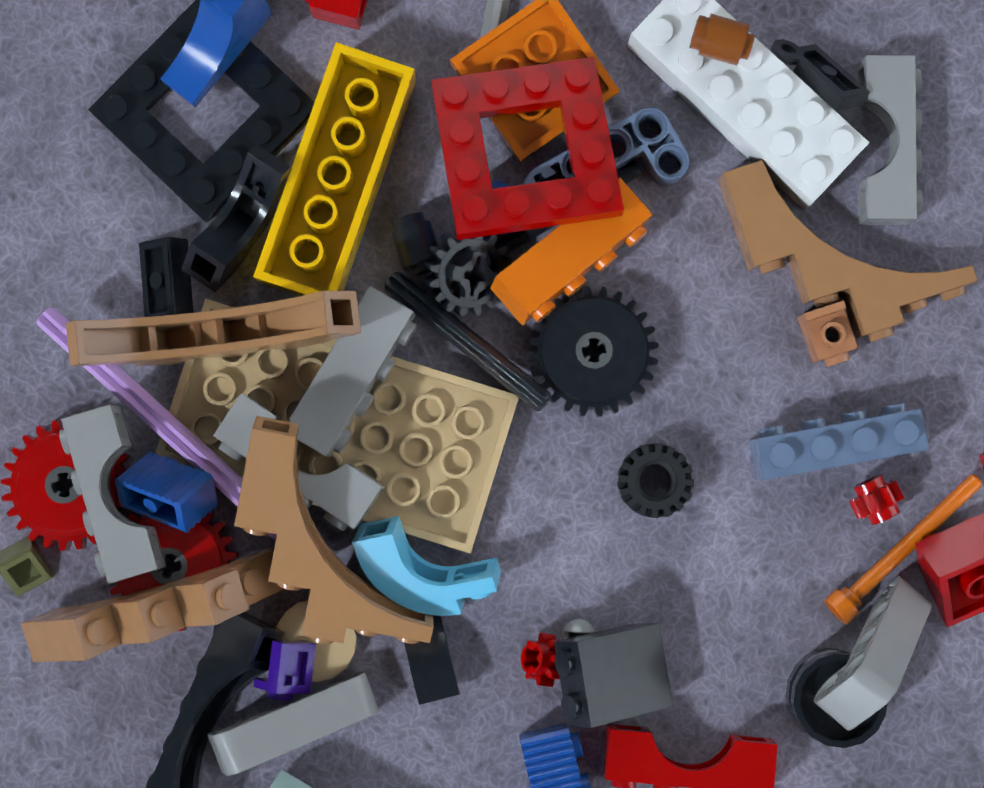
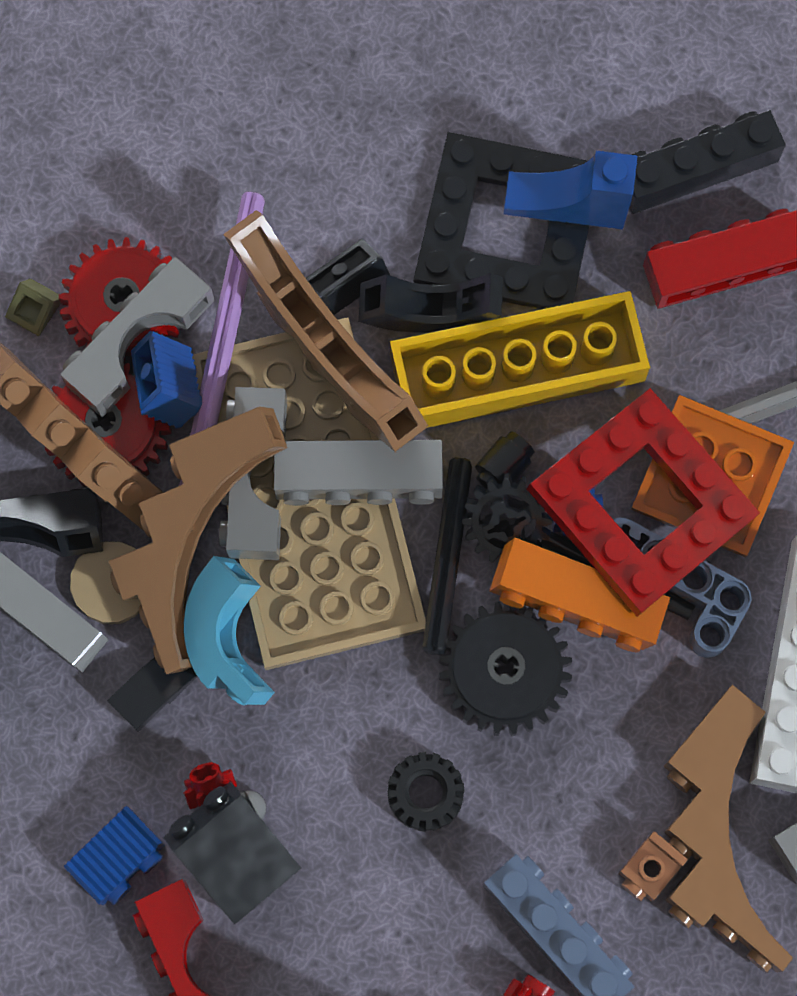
camera: 60 degrees right, 10 degrees down
(288, 669) = (73, 572): dark purple bracket -> none

